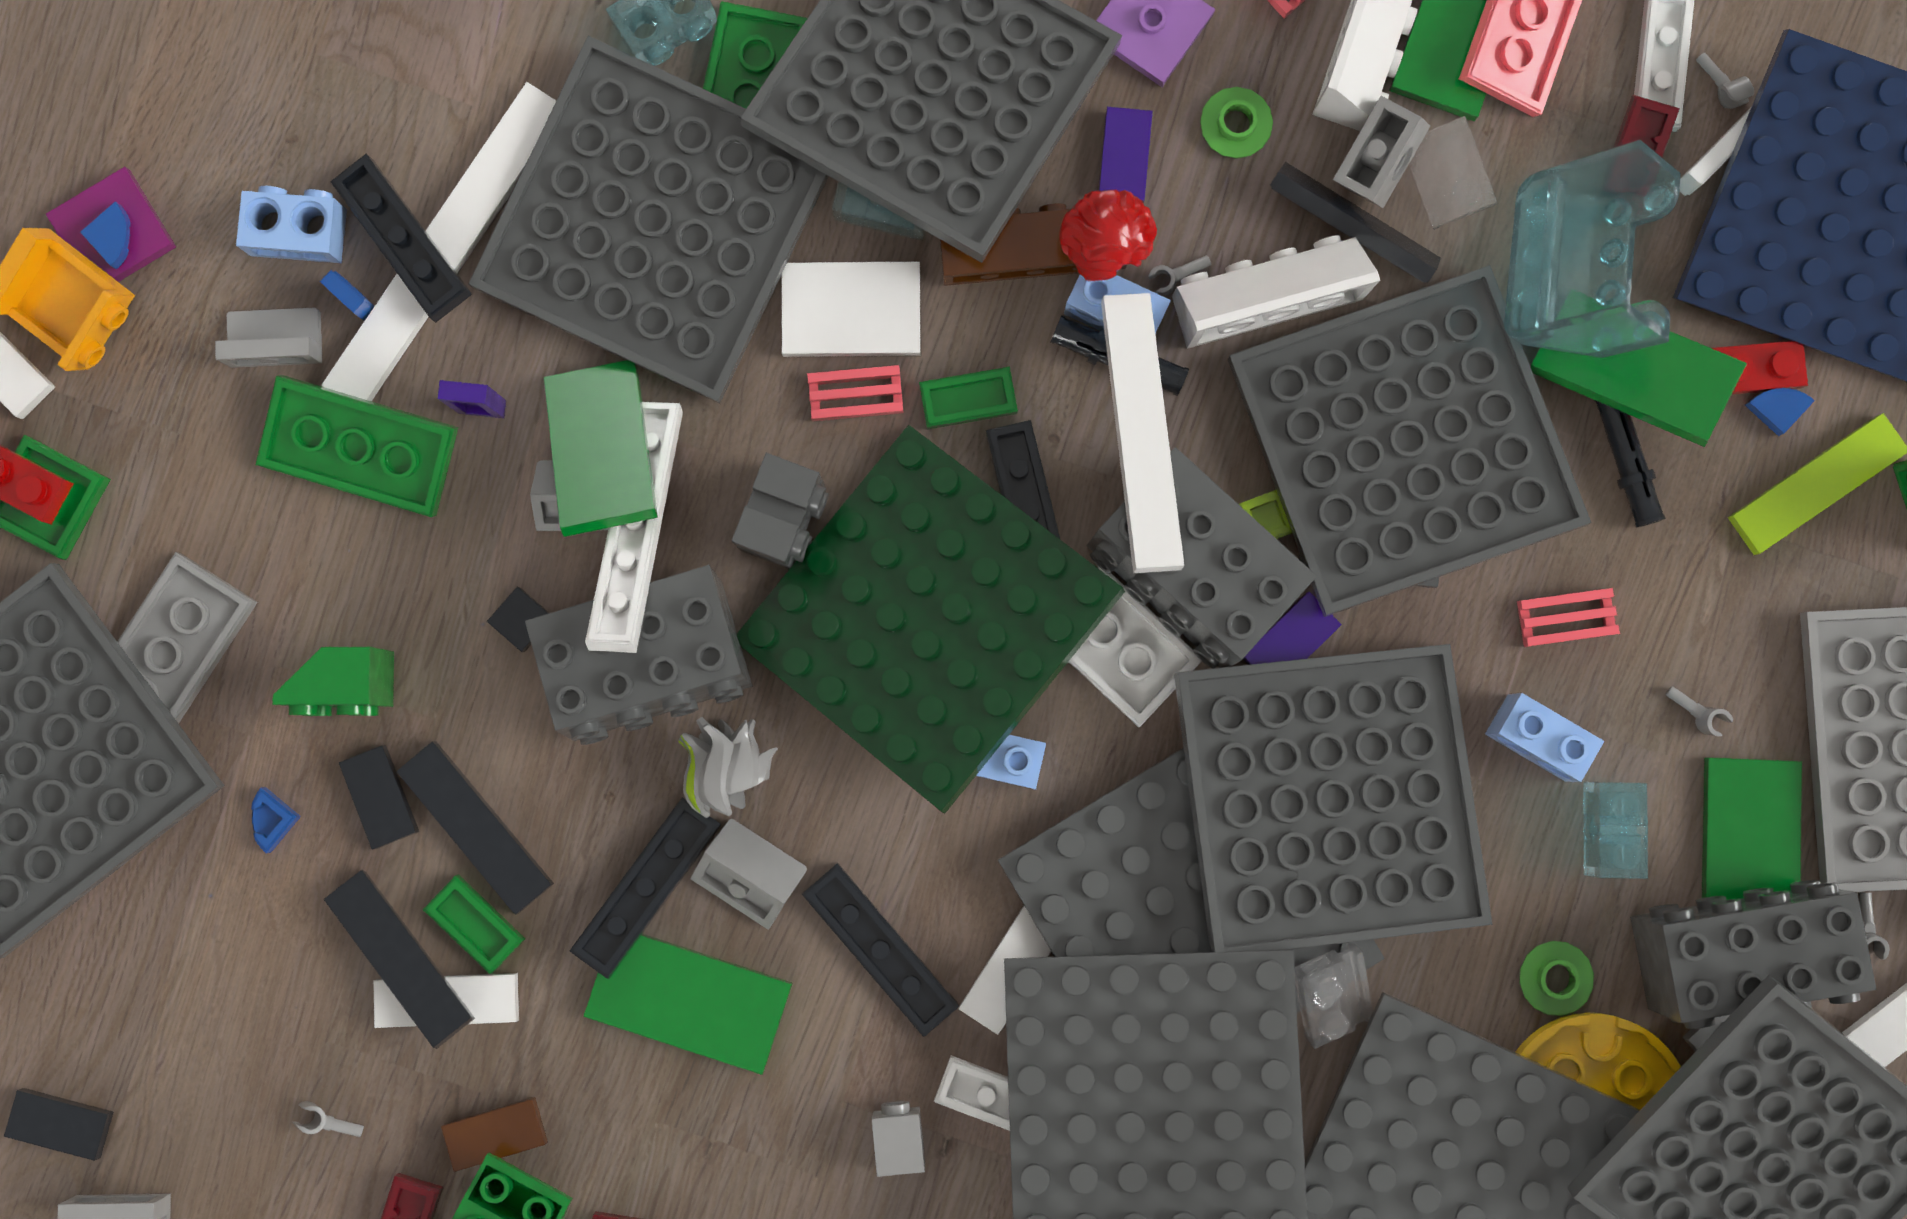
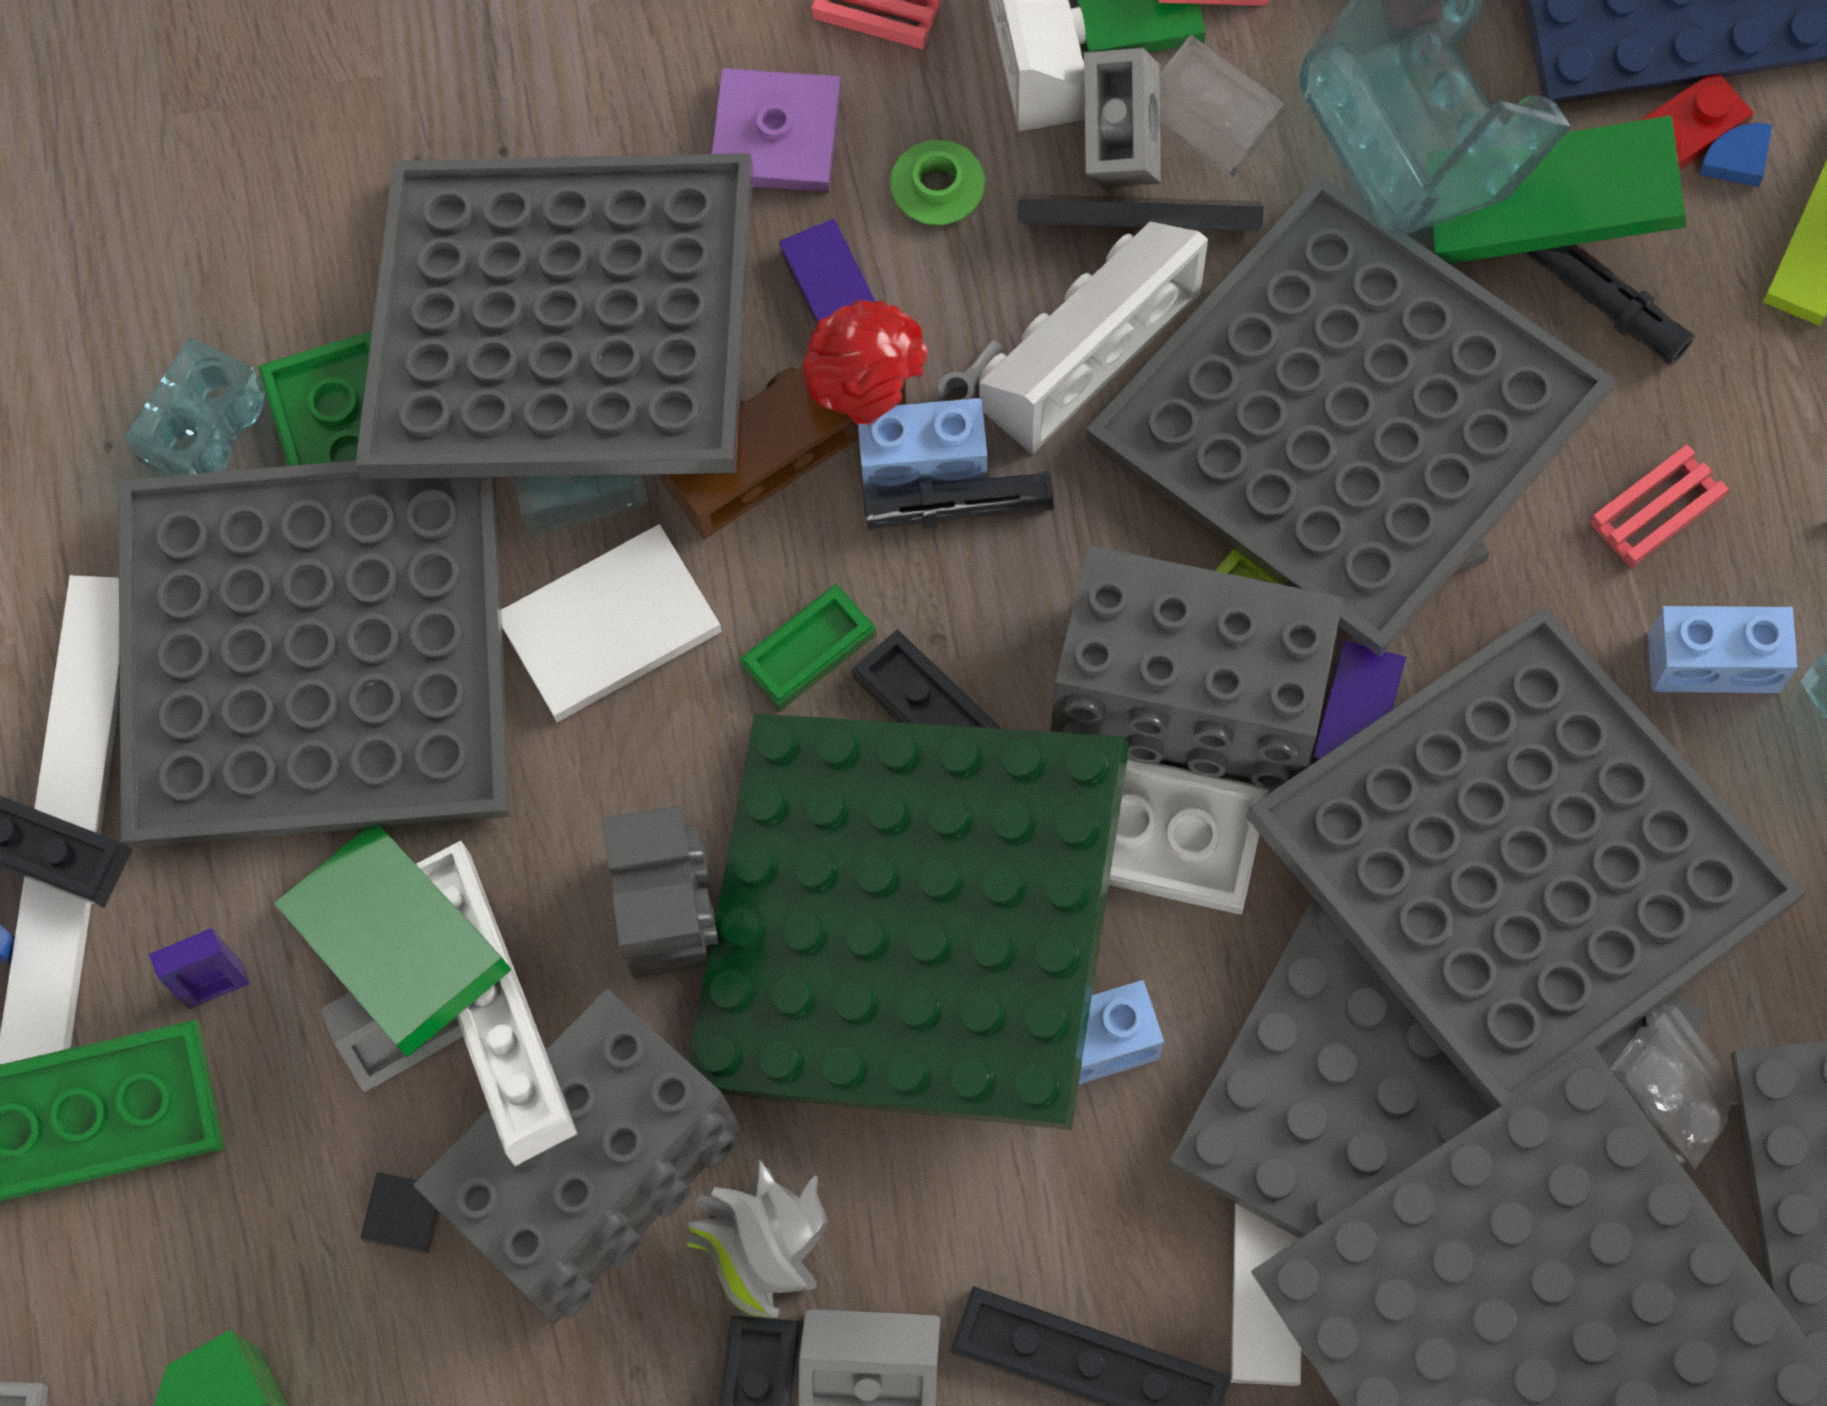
camera: 25 degrees left, 15 degrees down
(853, 375) = (656, 695): coral tile -> none
(1142, 433) = (1042, 550): white tile -> none

